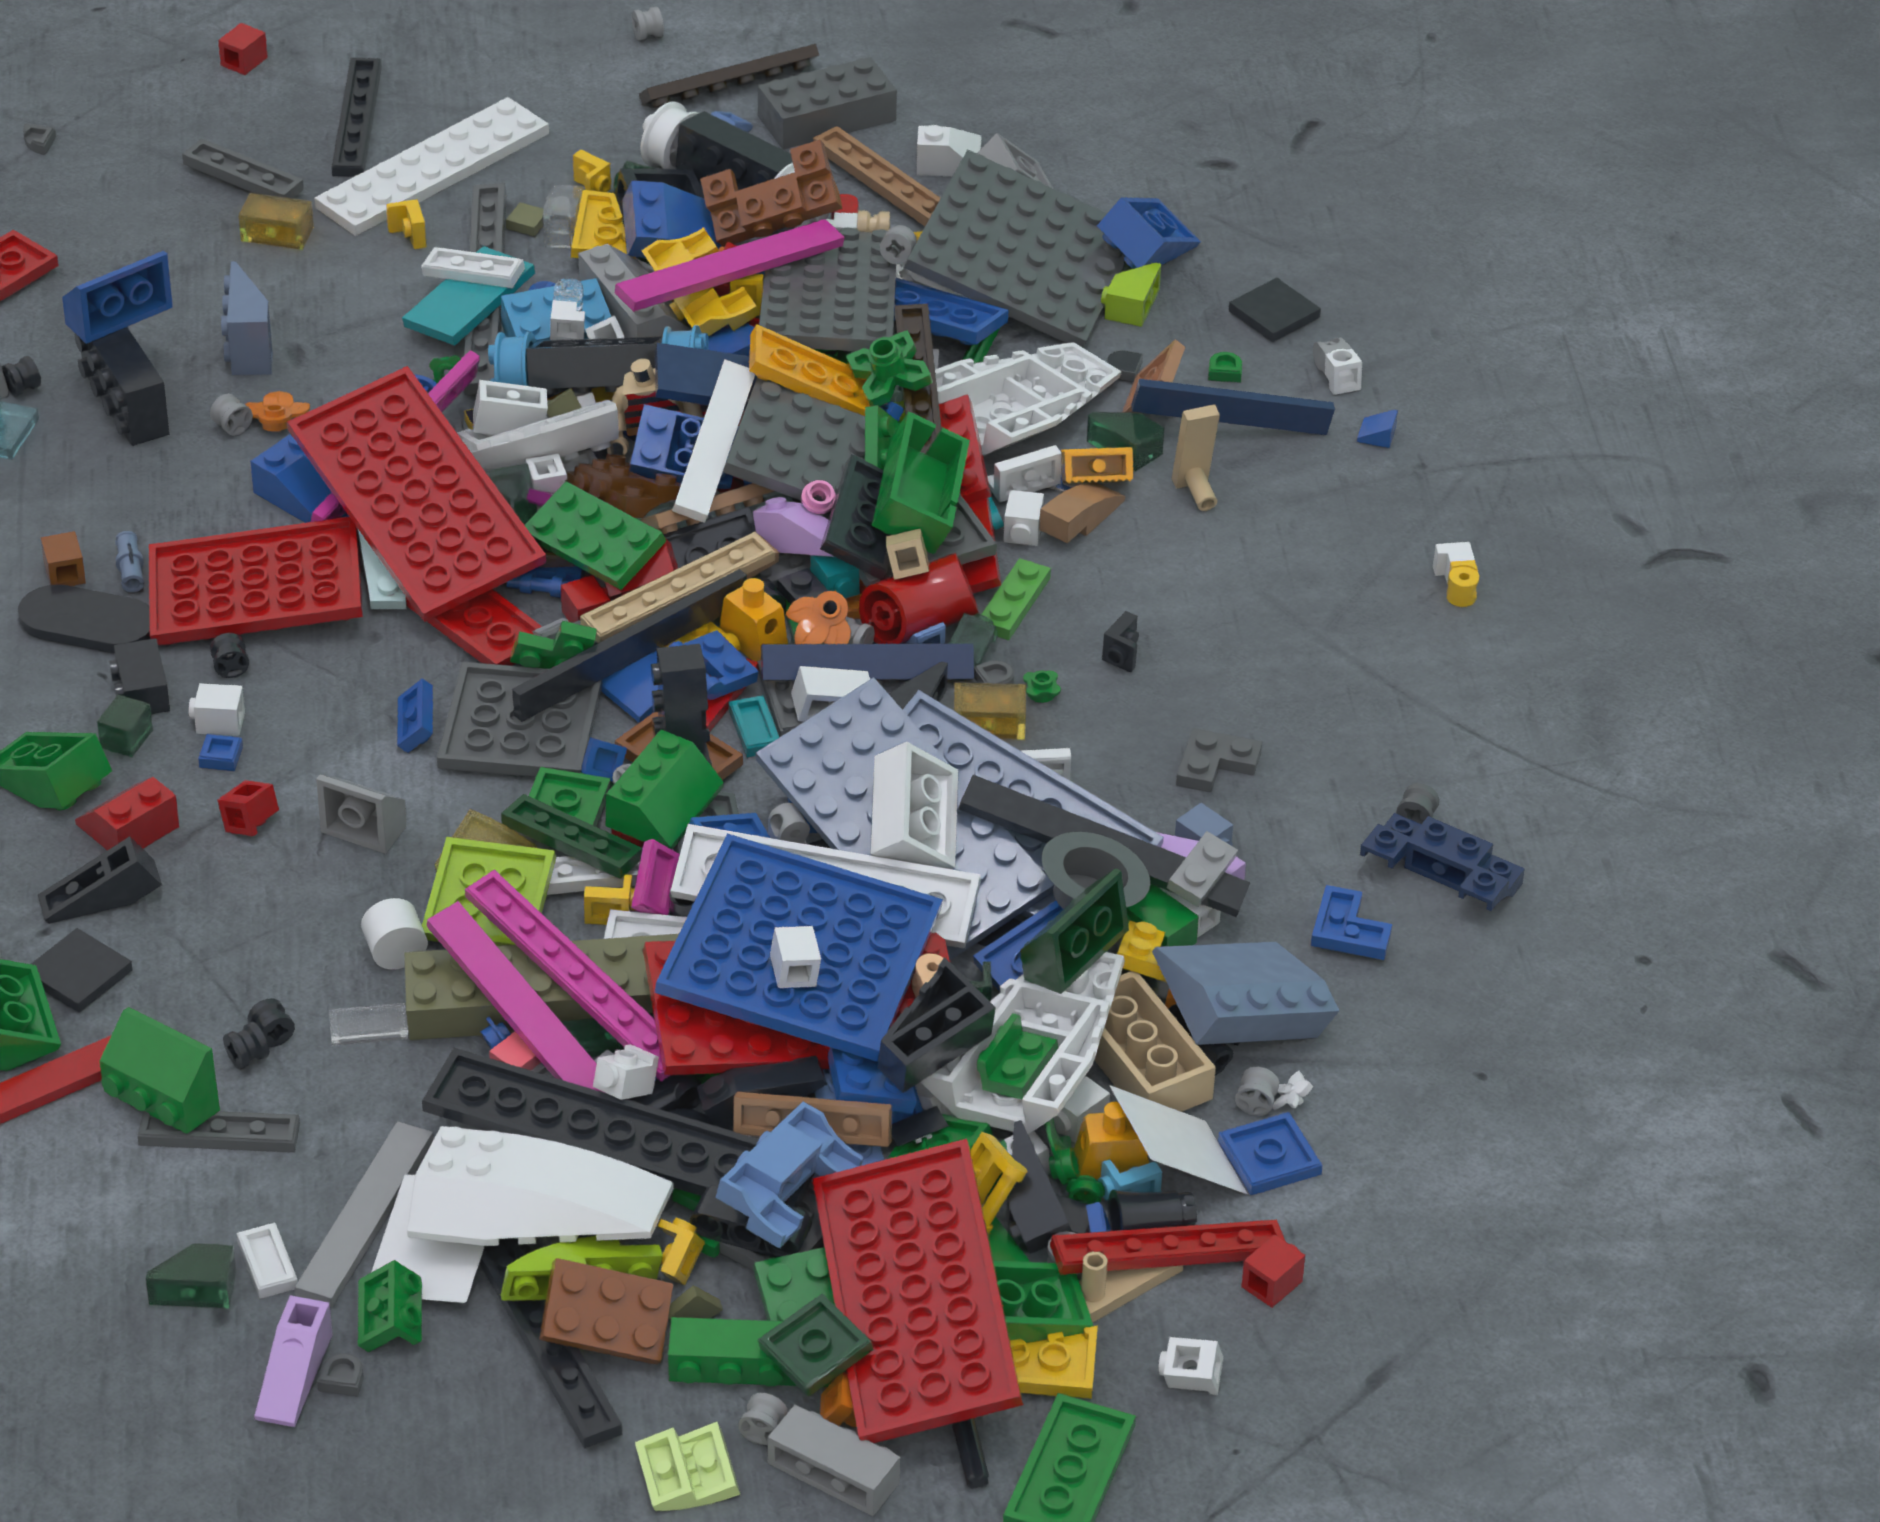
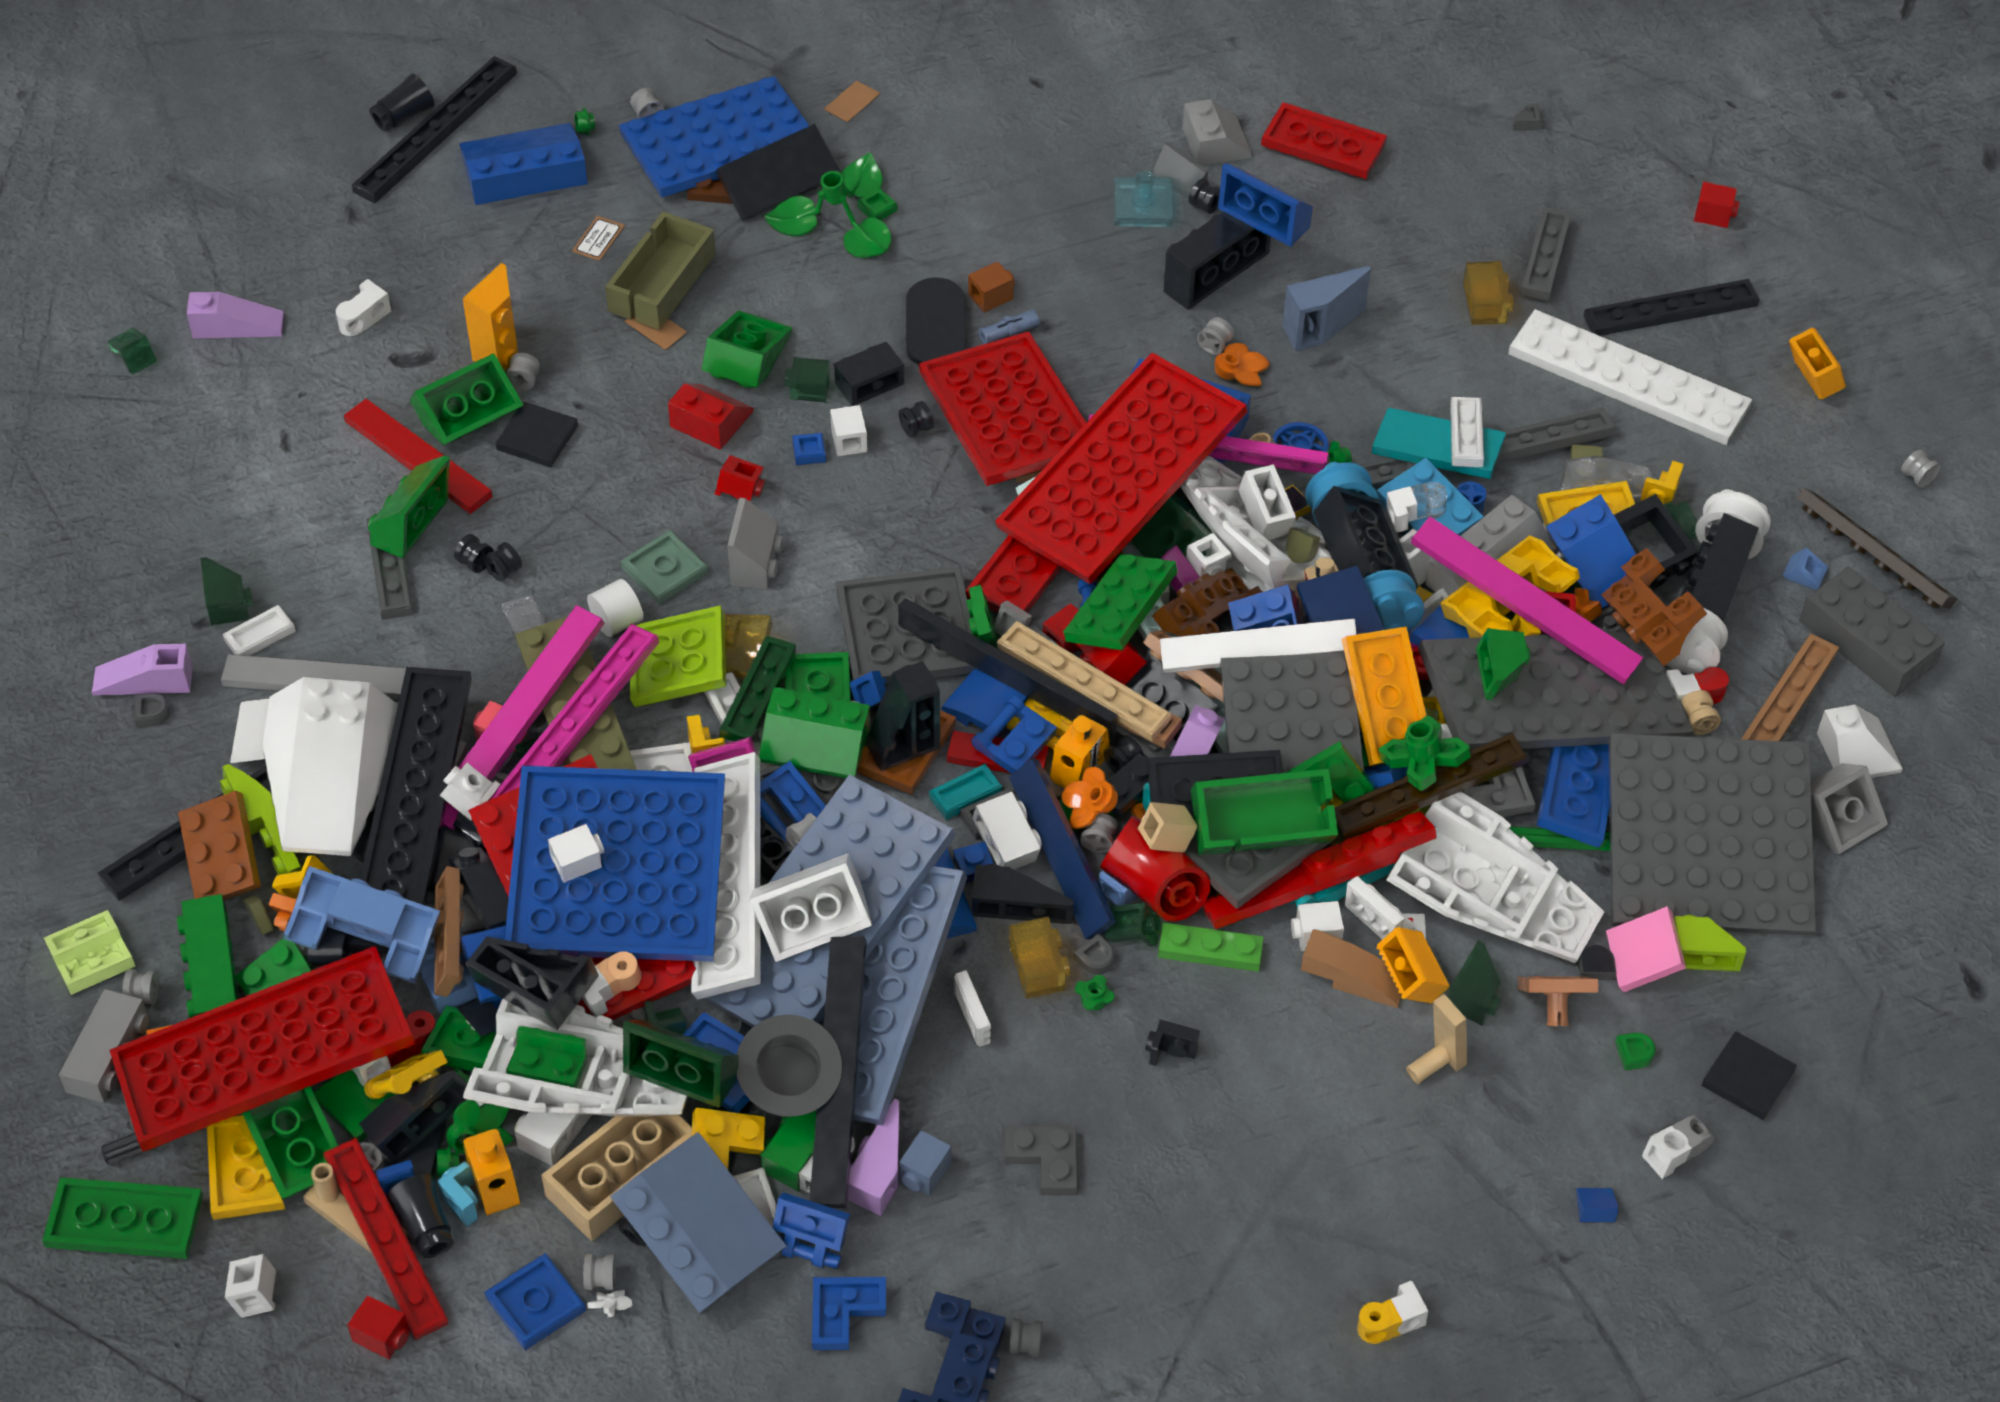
camera: 75 degrees right, 10 degrees up
(105, 883) = (626, 419): black slope -> none
(334, 897) = (664, 567): none -> sand green tile
(389, 1306) = (214, 719): green bracket -> none
(407, 217) = (1531, 381): yellow bracket -> none
(415, 716) = (898, 553): blue plate -> none
(493, 41) = (1817, 363): none -> light orange brick
(707, 1275) = (284, 907): none -> orange tile
(813, 288) = (1501, 659): none -> green slope
(815, 1344) = (194, 993): dark green plate -> none
(822, 489) = (1218, 735): bright pink plate -> none
(903, 239) = (1635, 722): light grey wheel -> none
(1129, 322) = (1646, 949): none -> bright pink tile
(1146, 232) = (1795, 933): blue slope -> none
(1178, 1140) = (495, 1210): white sticker -> none
(1202, 868) = (835, 1156): light grey plate -> none
(1235, 406) = (1546, 1060): dark blue tile -> none
(1264, 913) = (812, 1223): none -> blue plate

